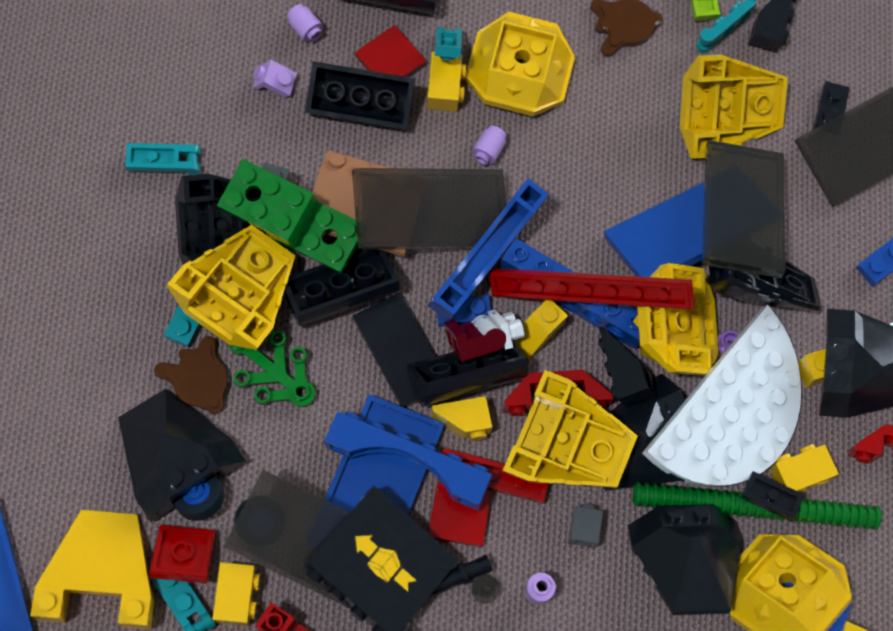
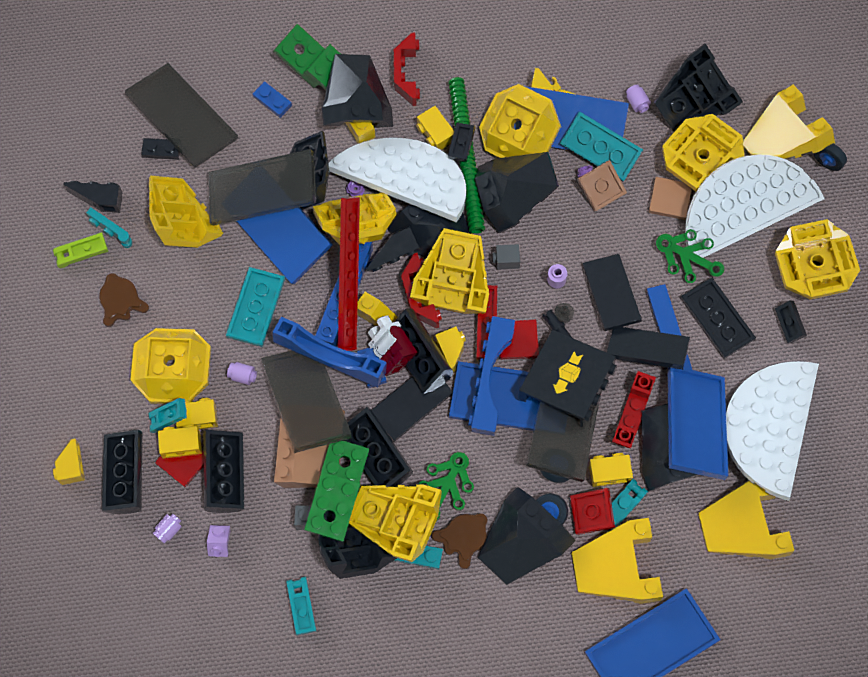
camera: 90 degrees left, 0 degrees up
(411, 51) = (179, 441): none -> yellow brick
(581, 182) = (255, 307): none -> teal tile

